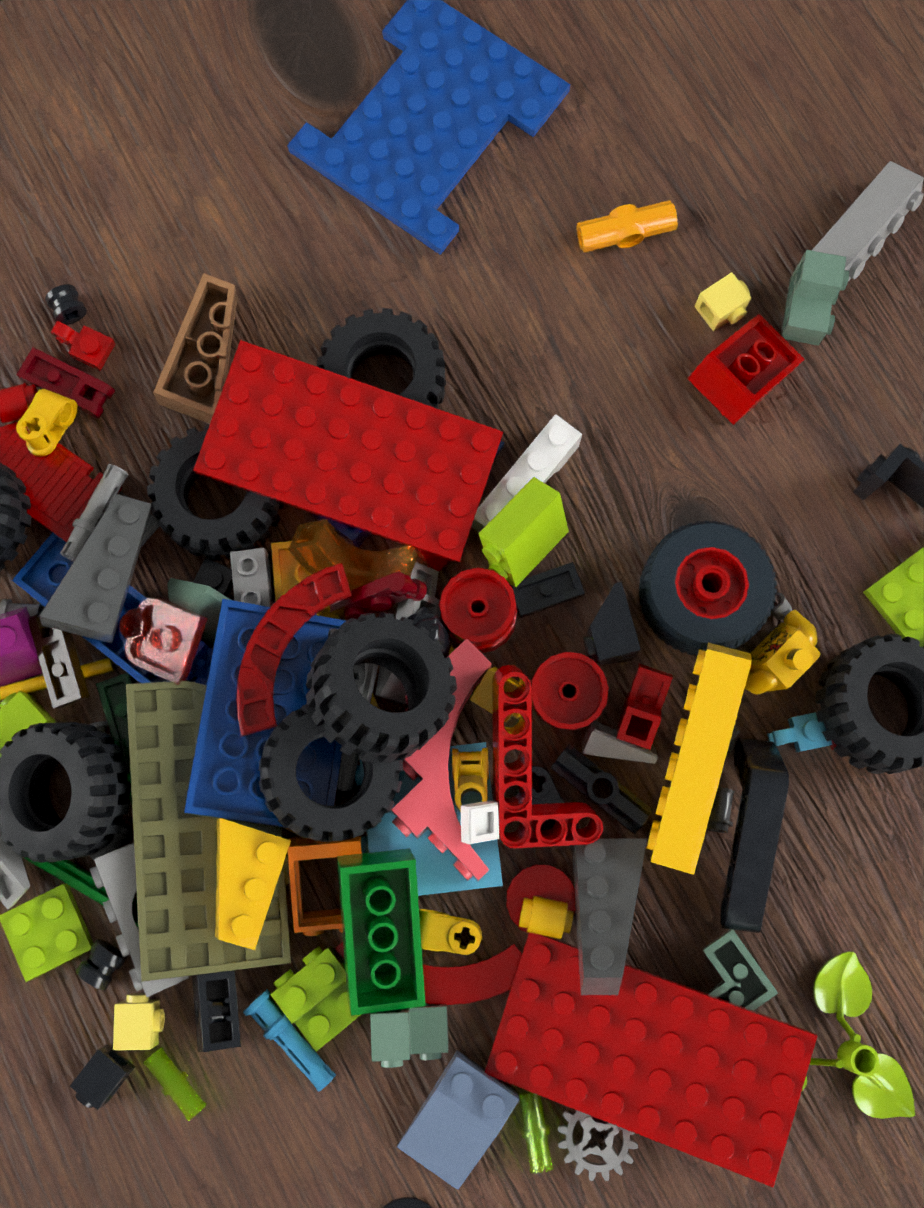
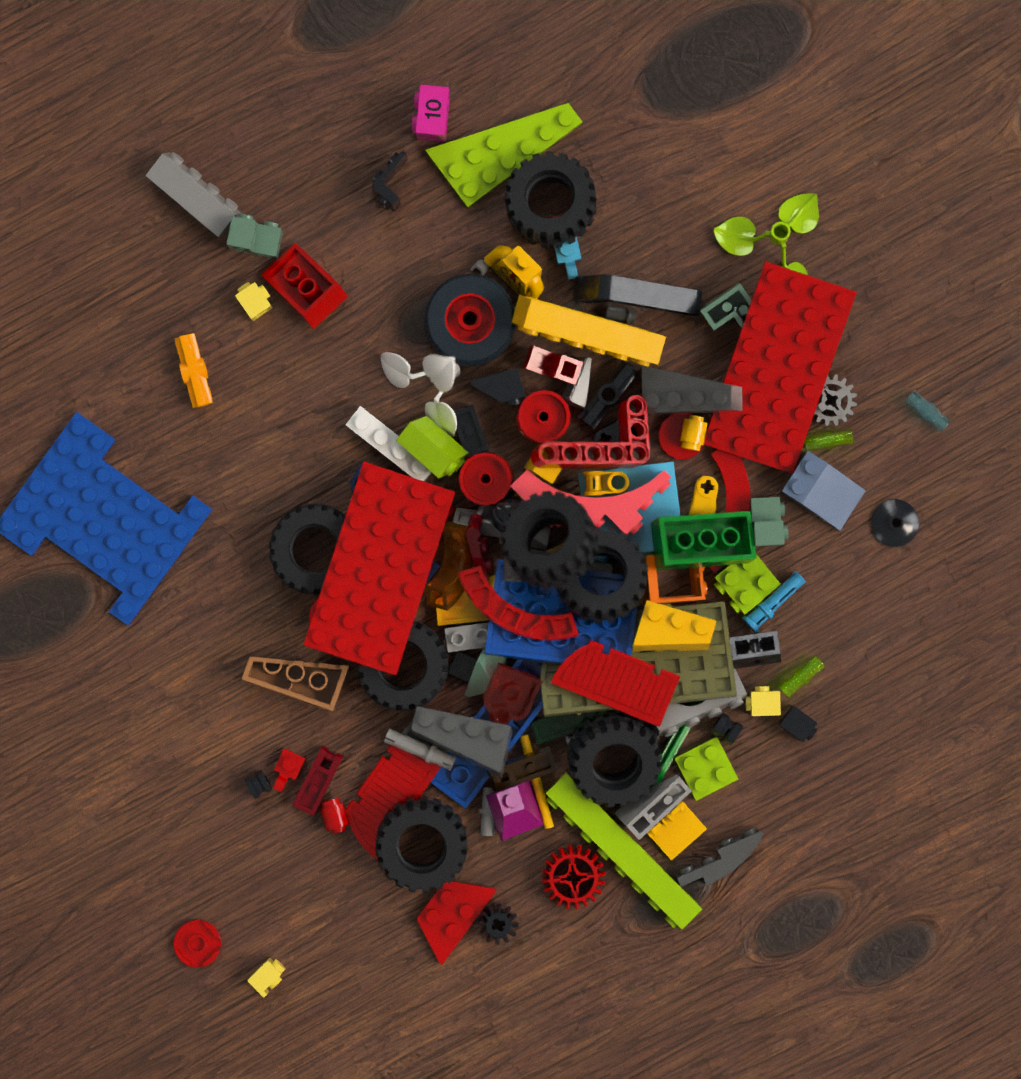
camera: 90 degrees left, 10 degrees up
(48, 417) = (346, 789): yellow piece -> none
(167, 796) = (618, 681): none -> red piece
(479, 822) = (633, 476): white tile -> none
(627, 538) = (441, 372): none -> white plant

